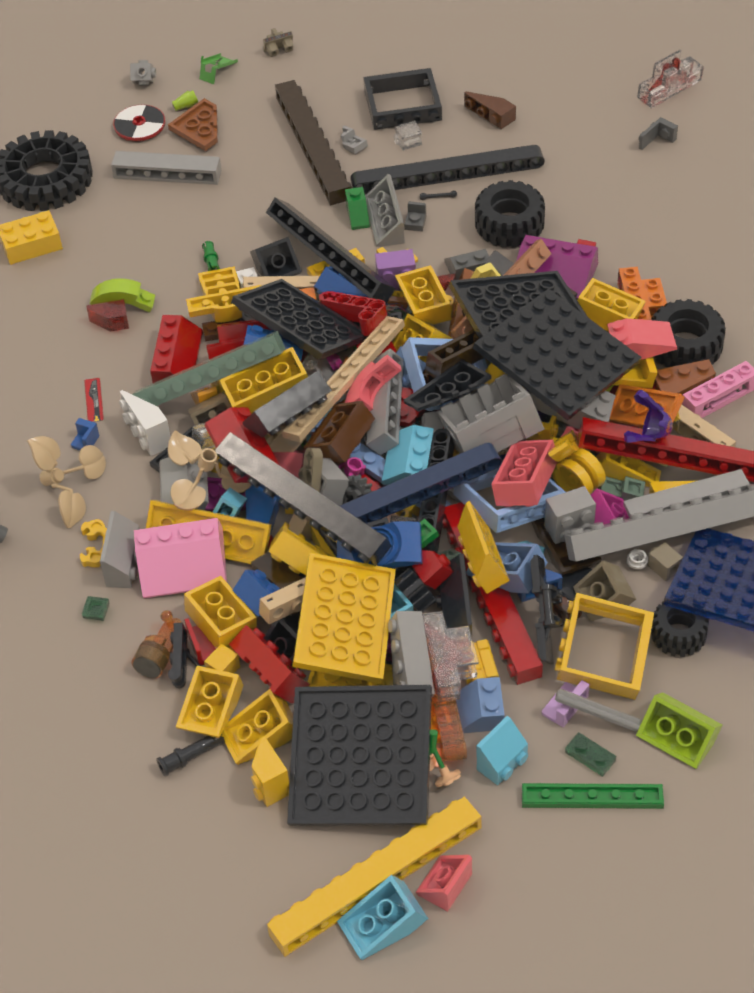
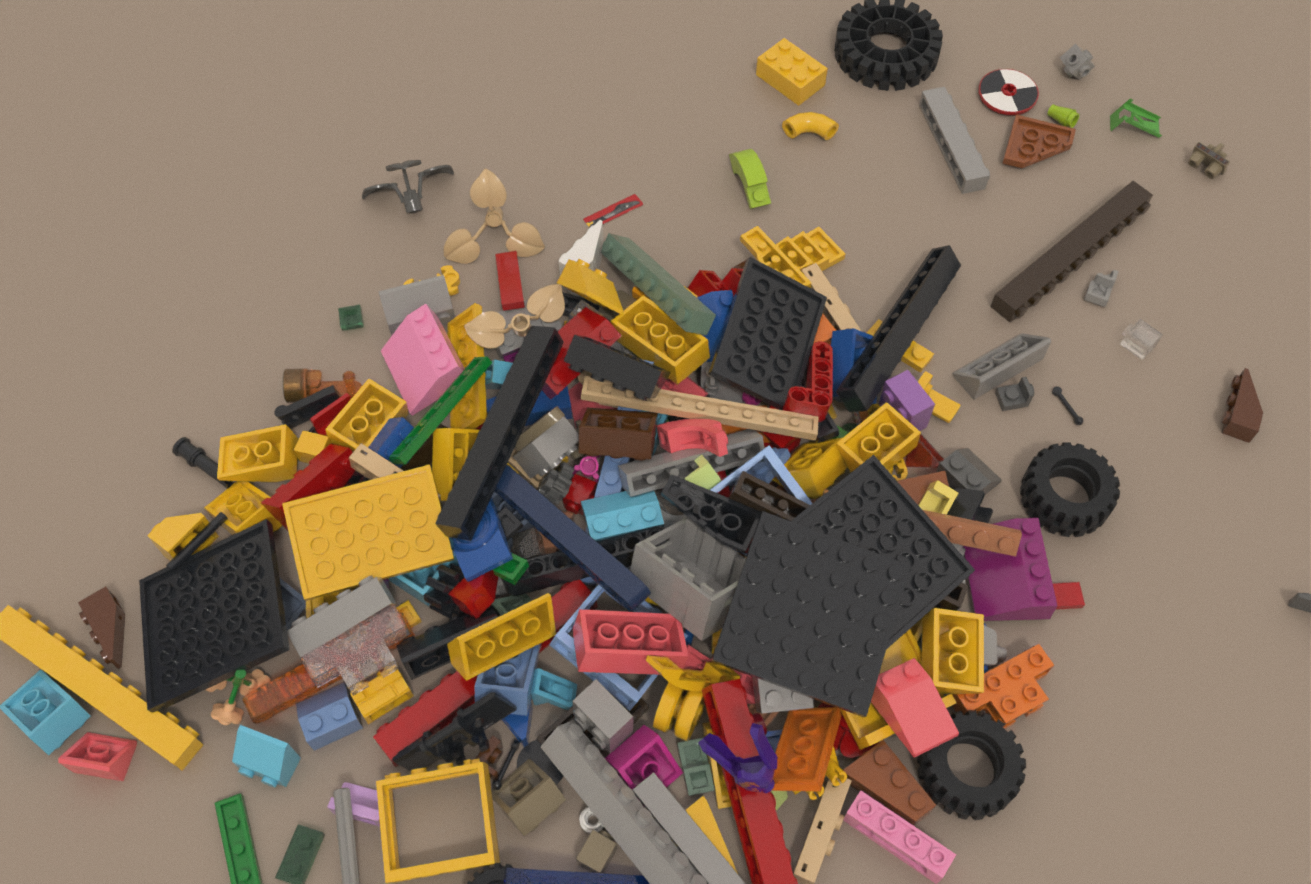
camera: 65 degrees right, 10 degrees up
(87, 434) = (558, 224): blue panel -> none
(91, 243) = (811, 123): none -> yellow cylinder
(109, 315) = (723, 178): clear red slope -> none
(131, 480) = (509, 281): none -> red tile
(175, 347) = (701, 247): red slope -> none
(186, 414) = (590, 285): none -> yellow slope
(210, 256) = (848, 227): green pin -> none
(250, 272) = (838, 272): white plate -> none
(252, 542) = (439, 410): none -> green tile
(276, 259) = (871, 286): black slope -> none
(293, 777) = (203, 535): none -> black bar
(316, 854) = (107, 624): none -> reddish brown slope
(357, 208) = (993, 332): green slope -> none
(402, 81) = (1220, 291): black window -> none
(404, 388) = (704, 475): none -> yellowish green panel
(452, 168) = (1116, 405): black beam -> none

